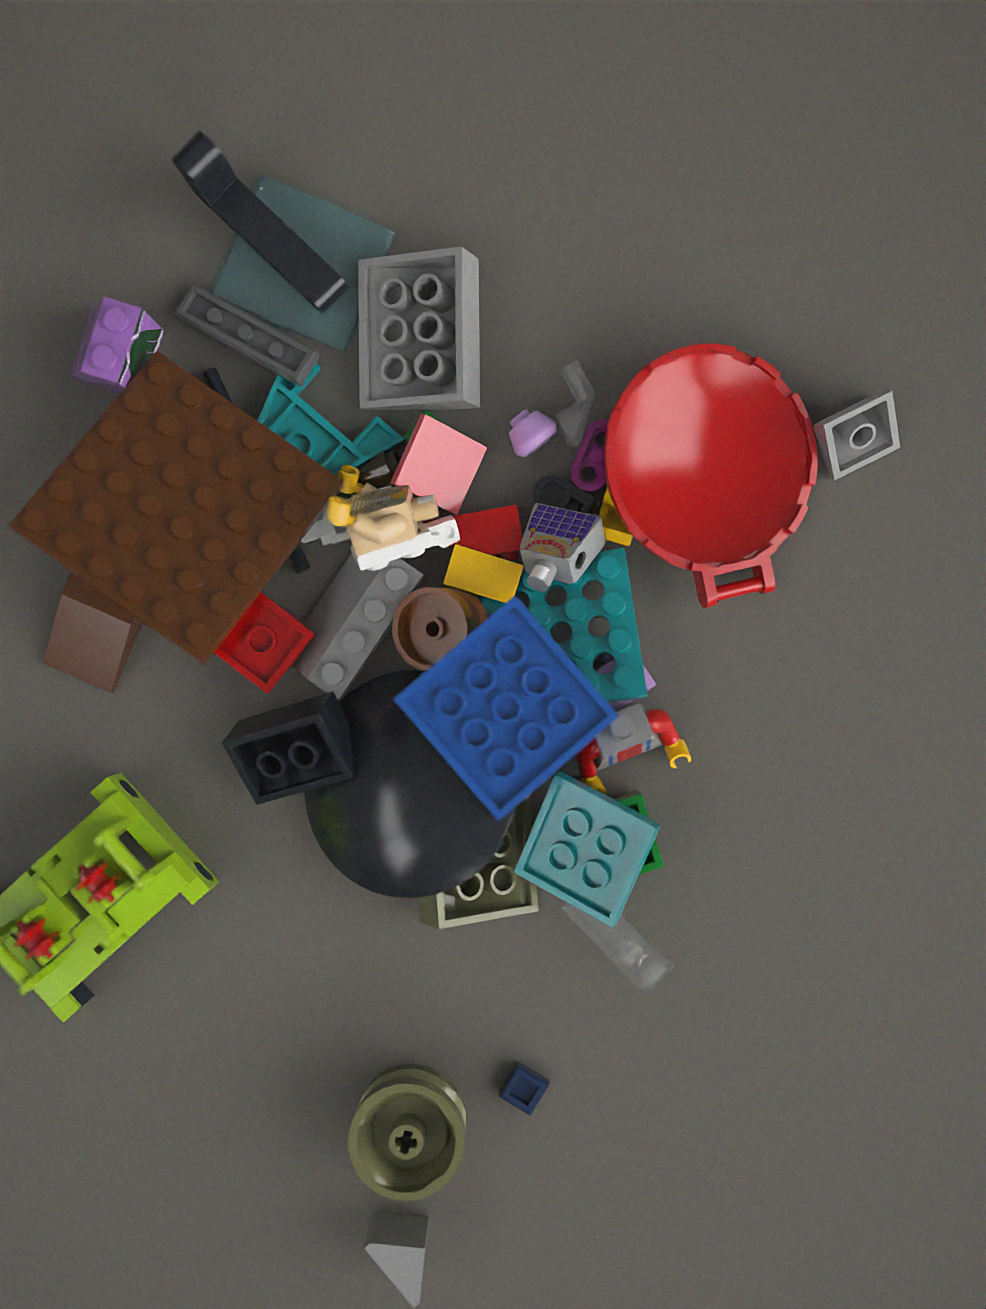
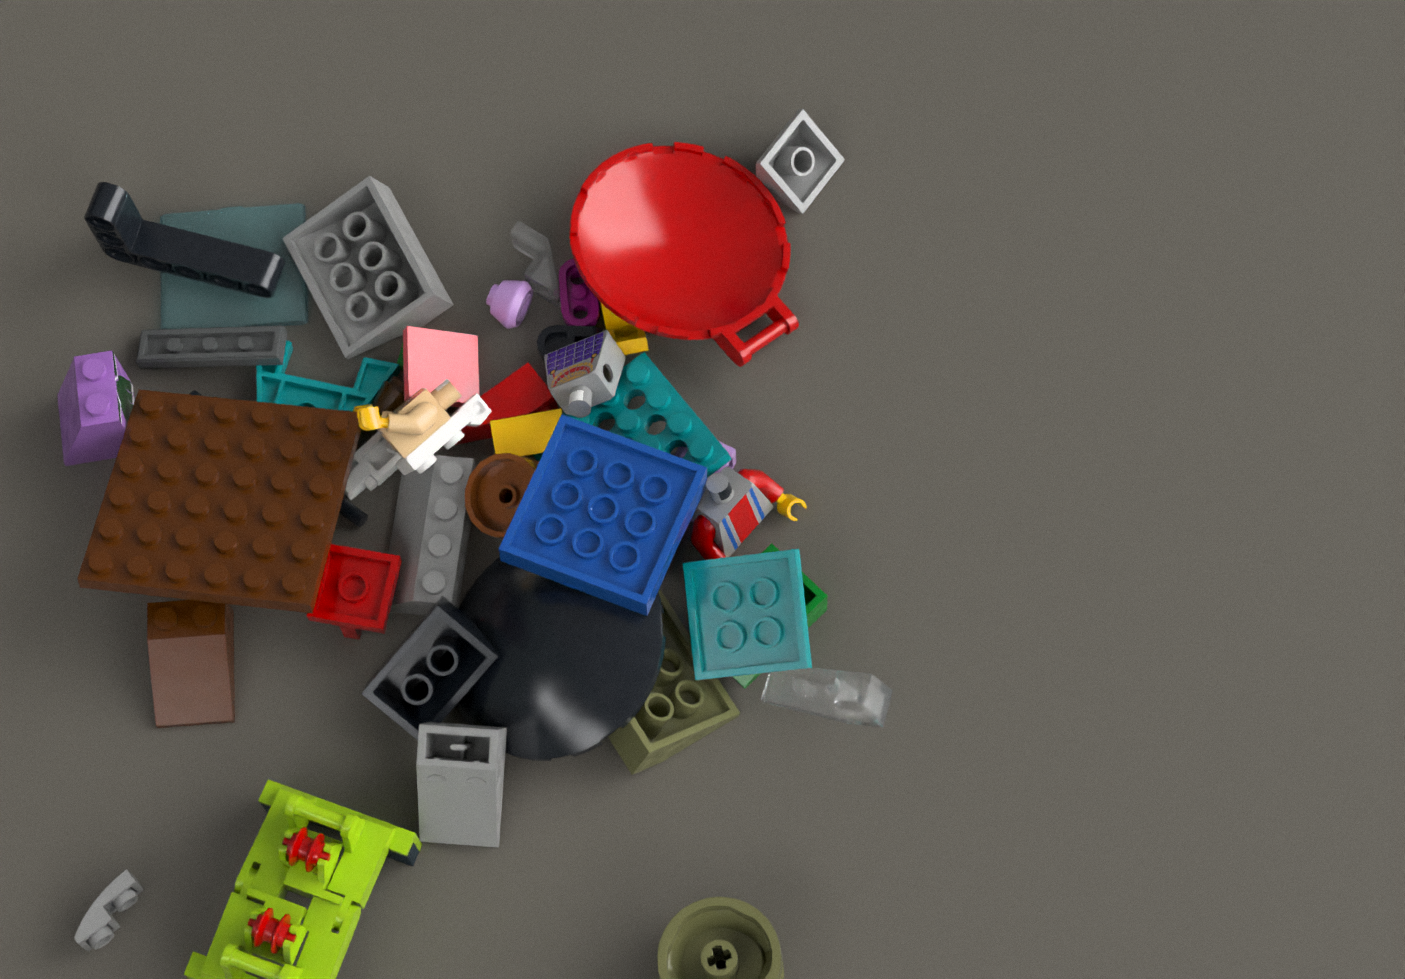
camera: 25 degrees left, 20 degrees down
(272, 857) = (460, 783): none -> light grey slope
(524, 1088) = (815, 884): dark blue tile -> none

